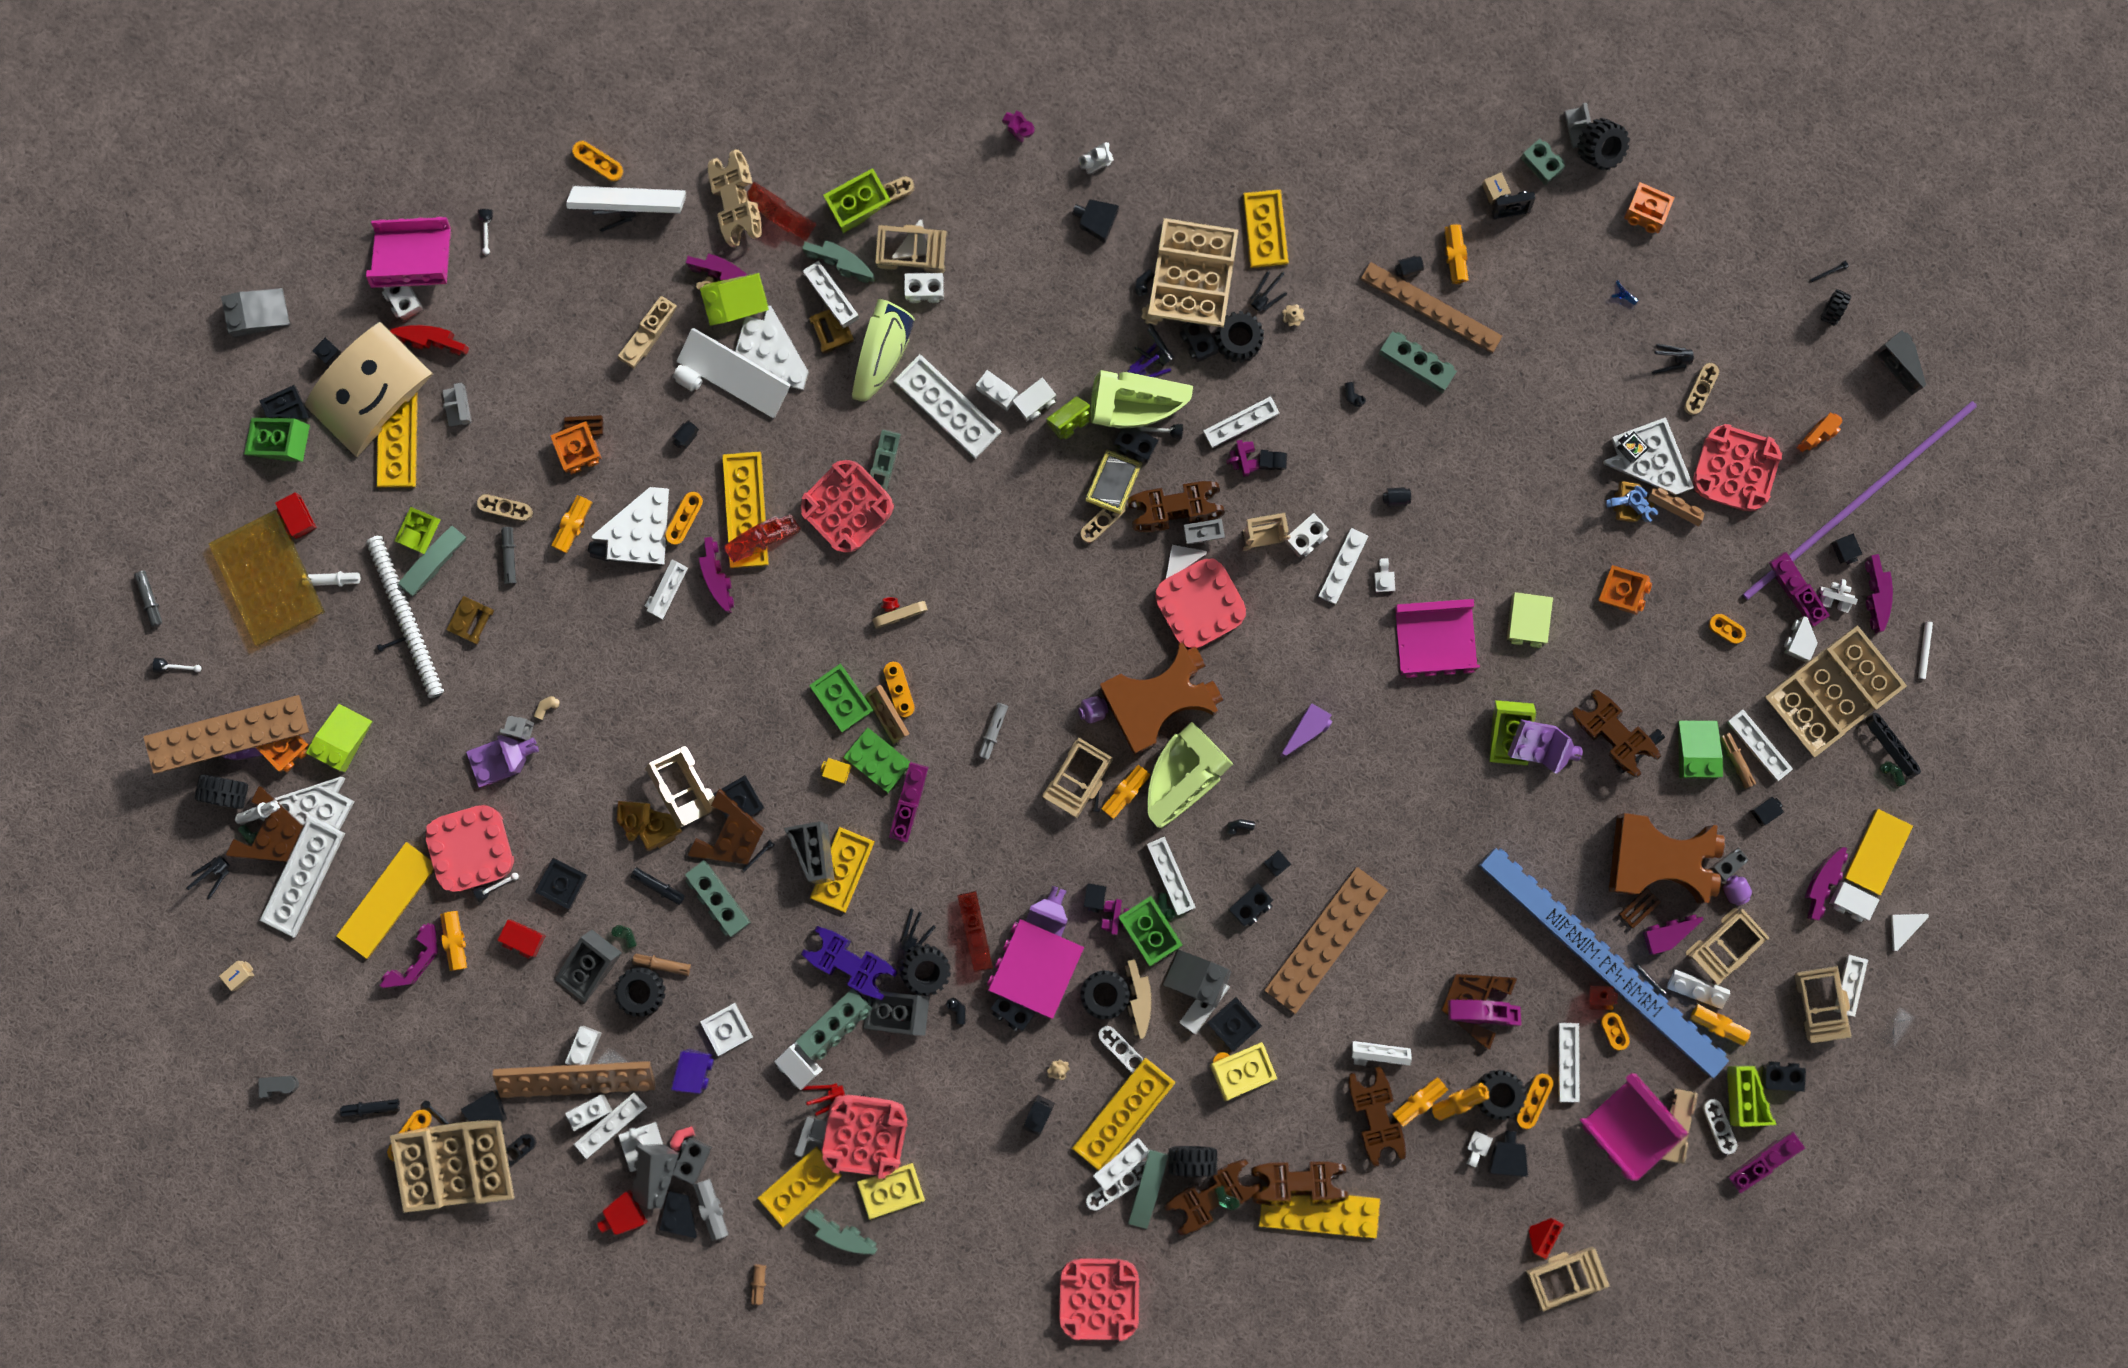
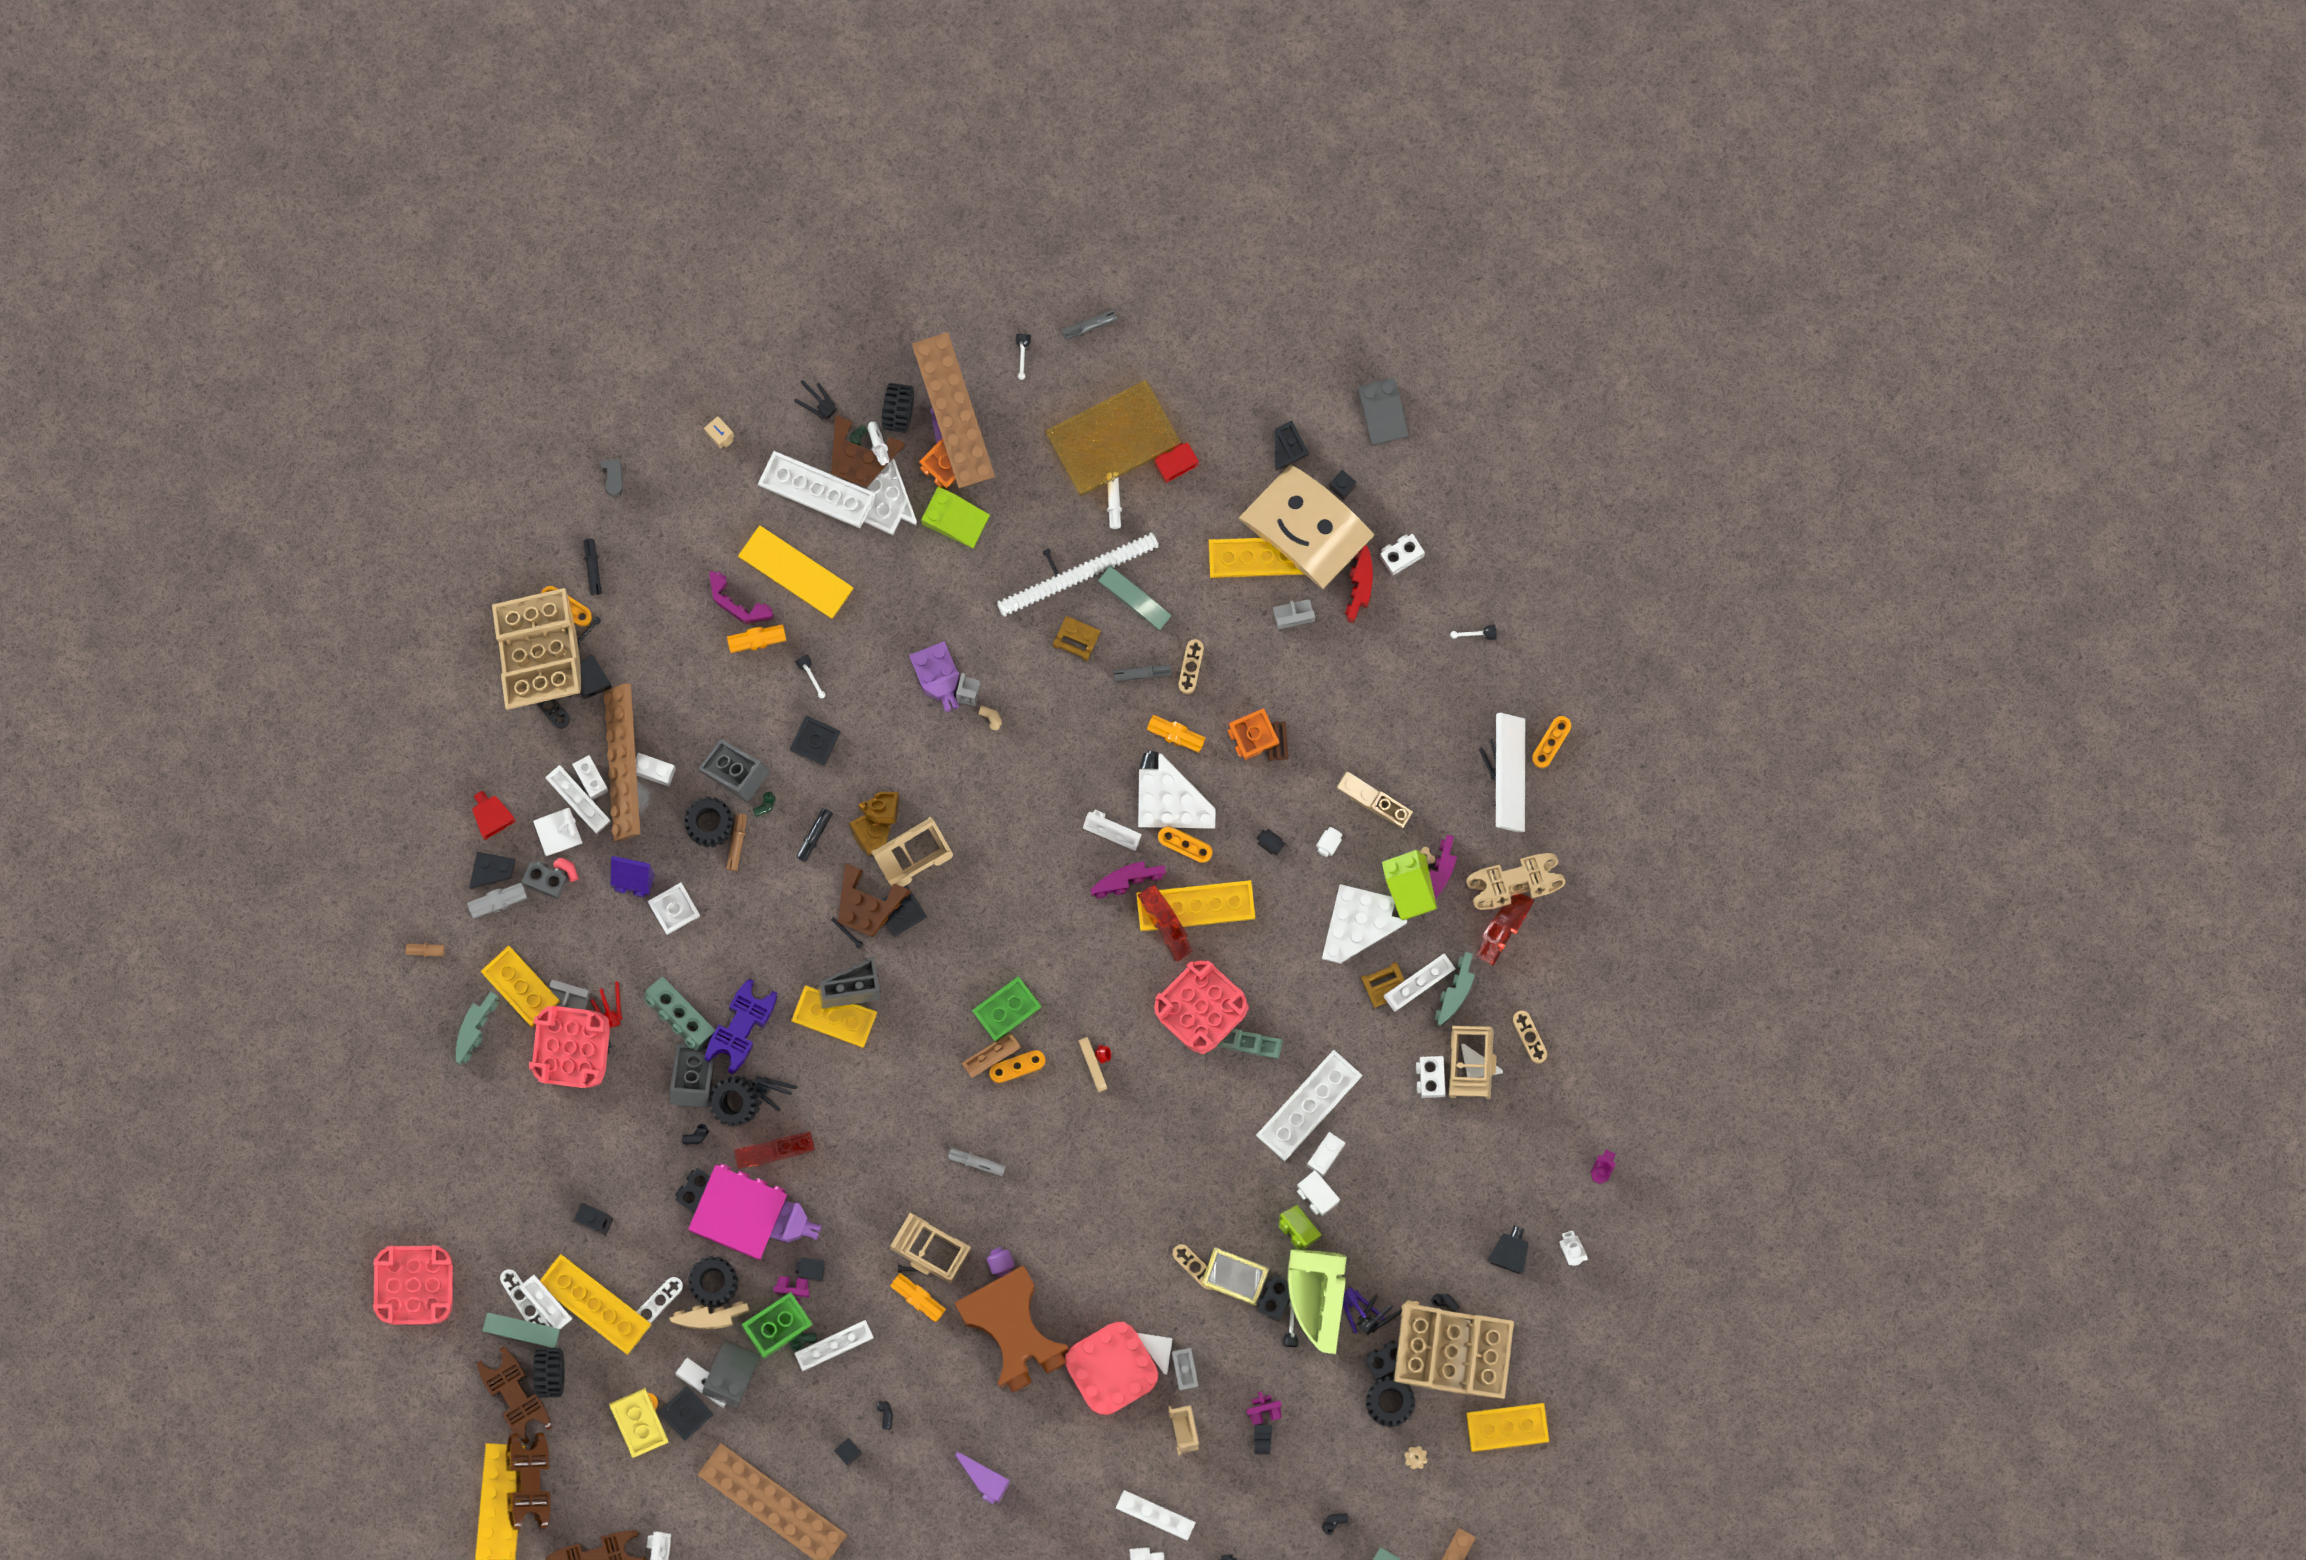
camera: 85 degrees right, 5 degrees down
(277, 439) = (1253, 440): bright green slope -> none
(410, 252) = (1446, 560): dark pink panel -> none
(417, 530) = (1164, 582): lime plate -> none
(469, 848) = (848, 649): coral plate -> none
(521, 938) = (760, 704): red piece -> none
(654, 1171) = (530, 843): dark grey wedge -> none
(733, 373) = (1335, 887): white tile -> none
(739, 919) = (821, 870): sand green brick -> none
(798, 1066) = (637, 979): white piece -> none
(835, 770) = (933, 1006): yellow brick -> none
(857, 200) = (1518, 1004): lime slope -> none
(877, 760) = (945, 1048): bright green plate -> none
(882, 348) = (1363, 1035): yellowish green panel -> none
(892, 1192) = (514, 1076): light yellow tile -> none
(909, 802) = (902, 1080): magenta slope -> none
(1058, 1070) = (638, 1237): tan plant -> none
(1175, 506) = (1210, 1340): reddish brown piece -> none
(1184, 774) = (936, 1355): yellowish green panel -> none
(1226, 1201) = (510, 1407): clear green arm -> none
(1241, 422) = (1301, 1406): white plate -> none
(1248, 902) = (809, 1423): black brick -> none
(1260, 300) = (1429, 1422): black plant -> none
(1303, 532) = (1189, 1472): white brick -> none

